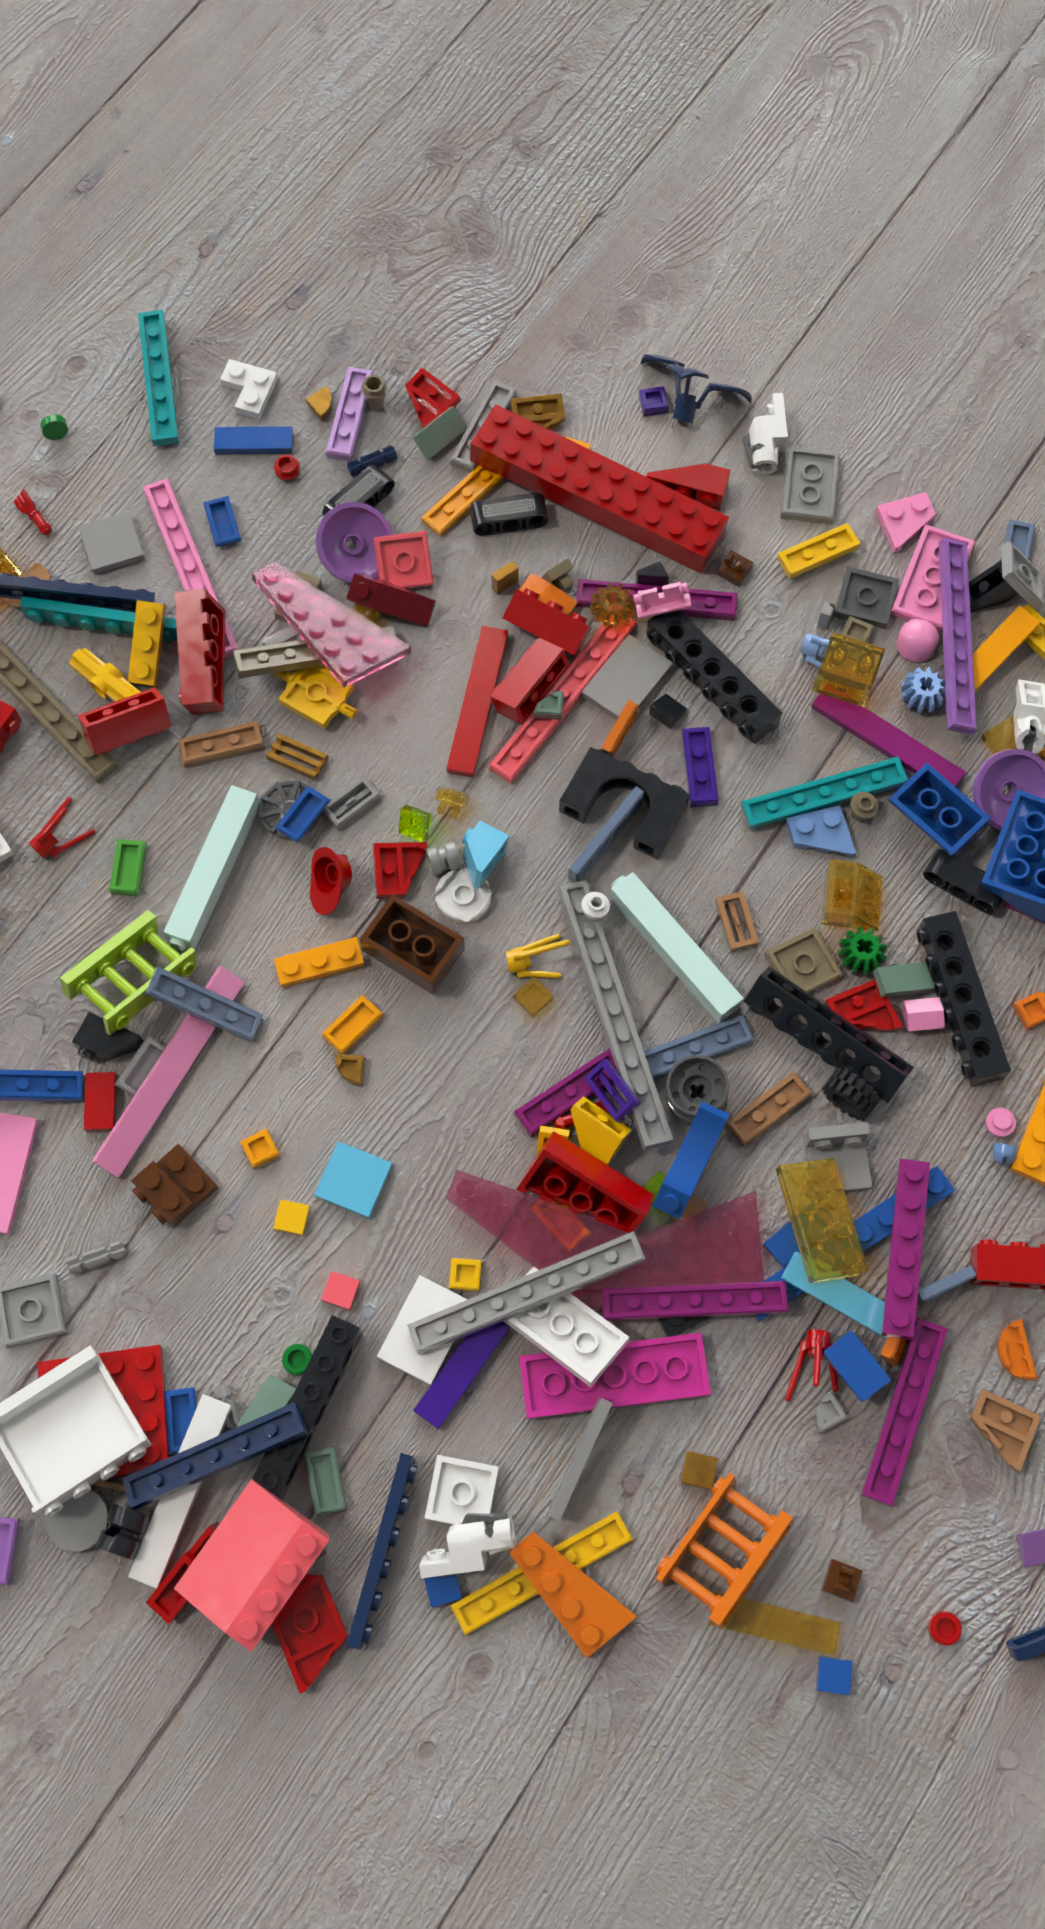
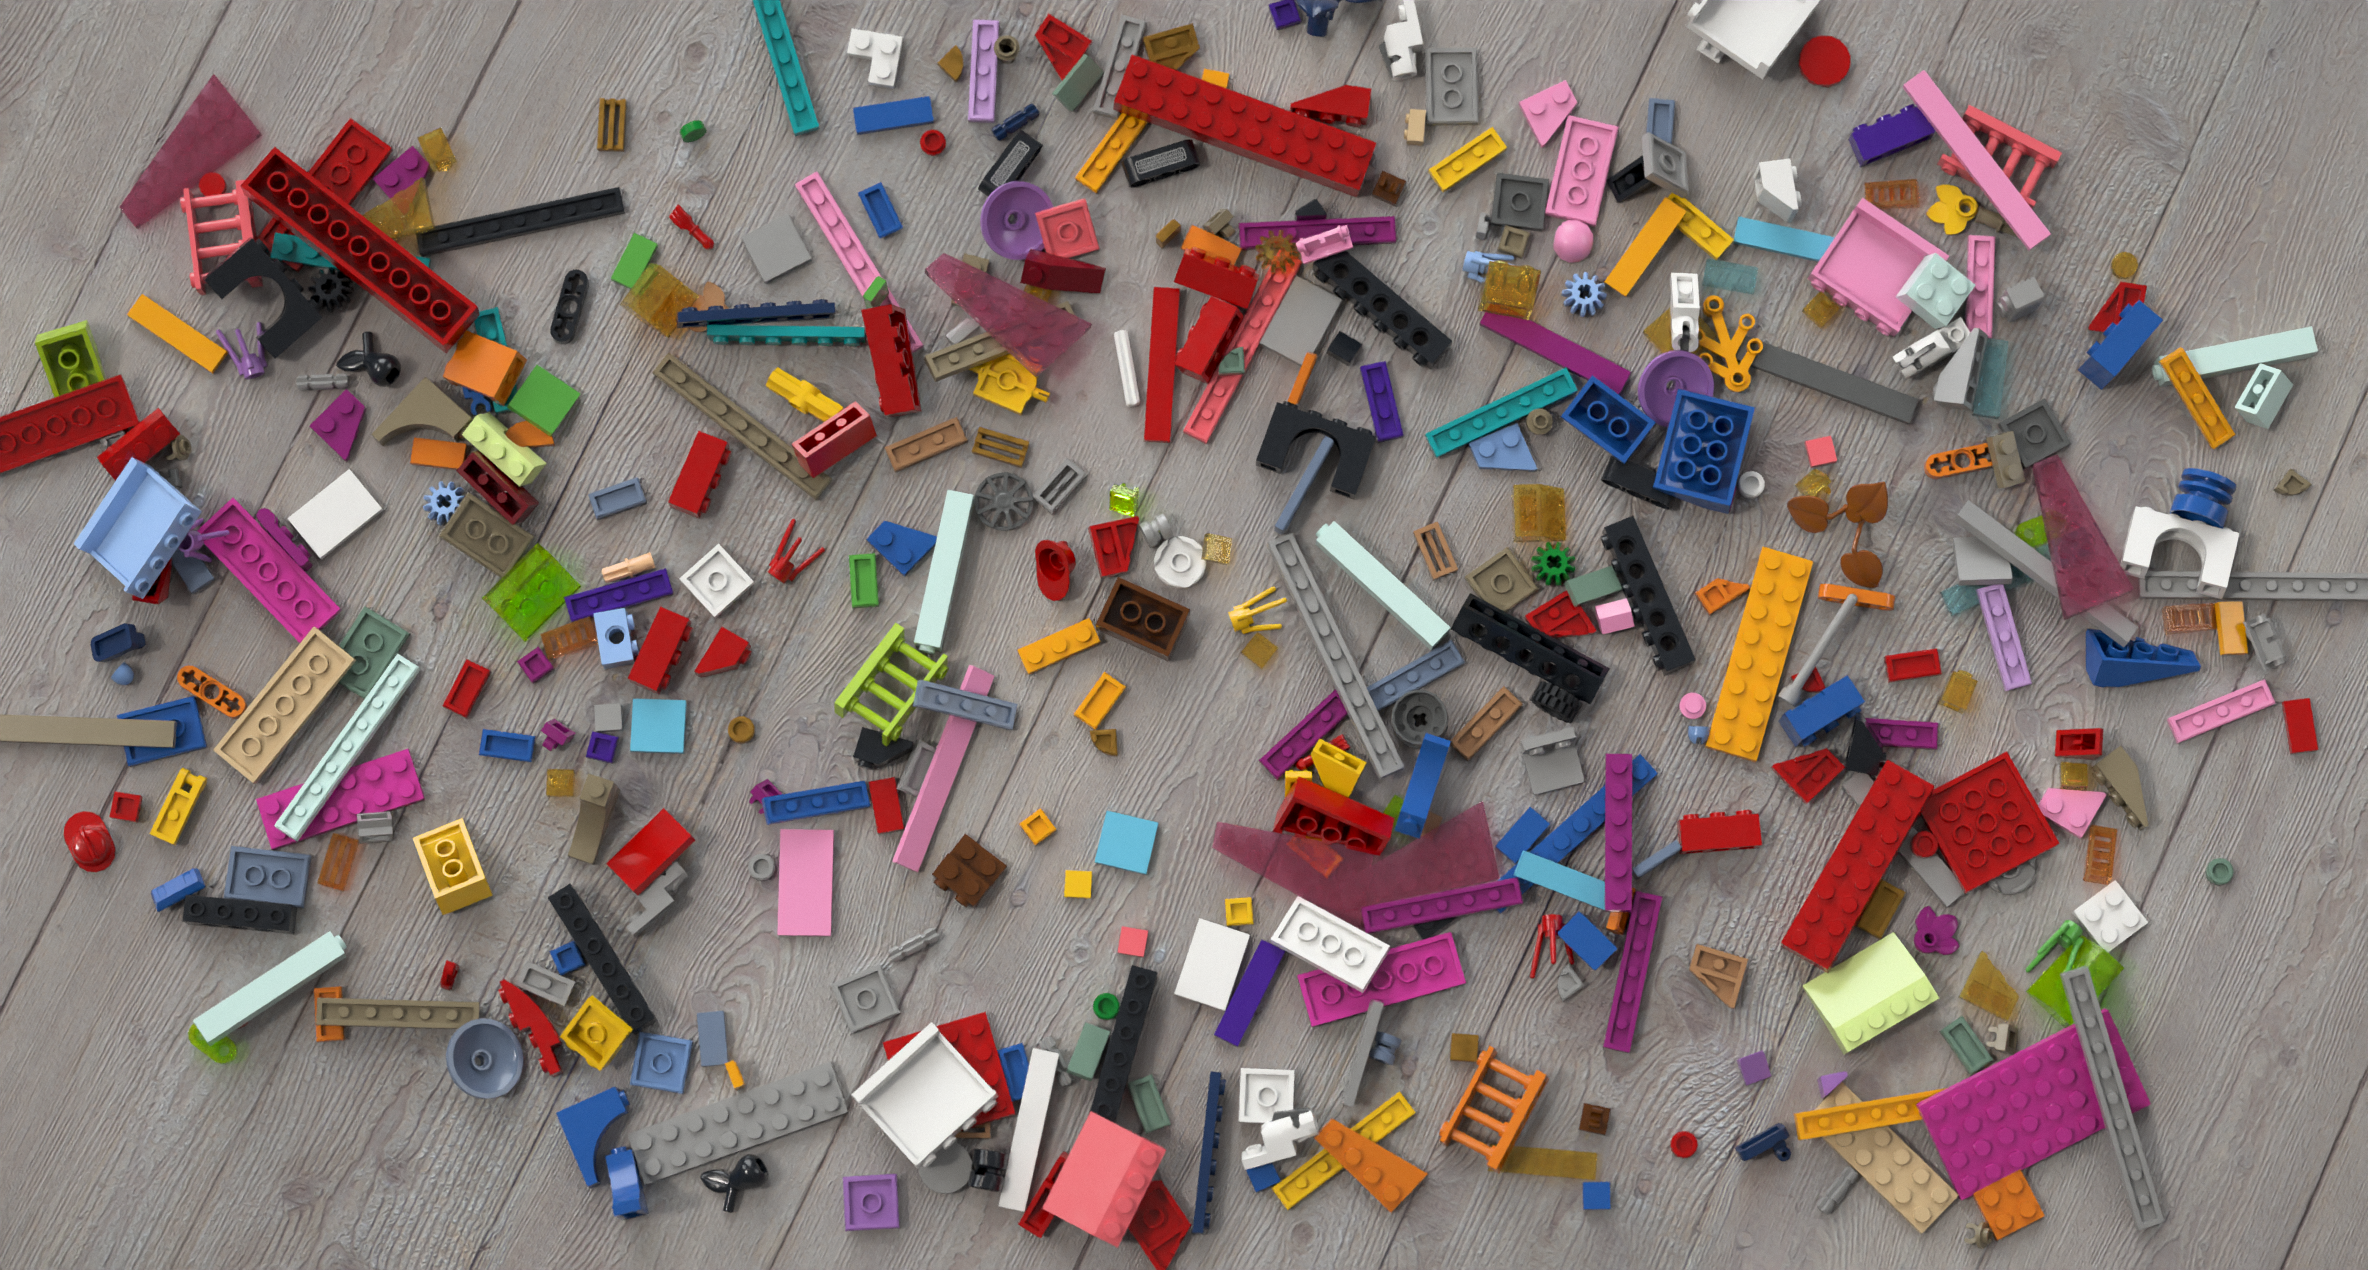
camera: 10 degrees left, 10 degrees up
(146, 643) = (837, 355): yellow plate -> none
(174, 838) = (901, 545): none -> blue wing
(196, 579) = (876, 293): none -> bright green tile
(214, 1456) = (1055, 1097): dark blue plate -> none
(302, 814) = (1018, 507): blue tile -> none
(441, 699) = (1127, 368): none -> white axle
(452, 798) = (1154, 468): clear yellow tile -> none
(483, 851) = (1192, 519): medium azure slope -> none
(503, 886) = (1216, 548): none -> clear yellow tile
(526, 1293) = (1296, 921): light grey tile -> none
(595, 912) = (1304, 565): white plate -> none
(604, 1463) = (1384, 1054): none -> sand blue wheel
(626, 1107) = (1348, 720): dark purple tile -> none
(770, 513) = (1416, 126): none -> tan piece
(821, 1220) = (1542, 819): clear yellow plate -> none
(957, 636) = (1609, 235): medium lavender tile -> none
(1015, 1352) = (1722, 907): orange tile -> none

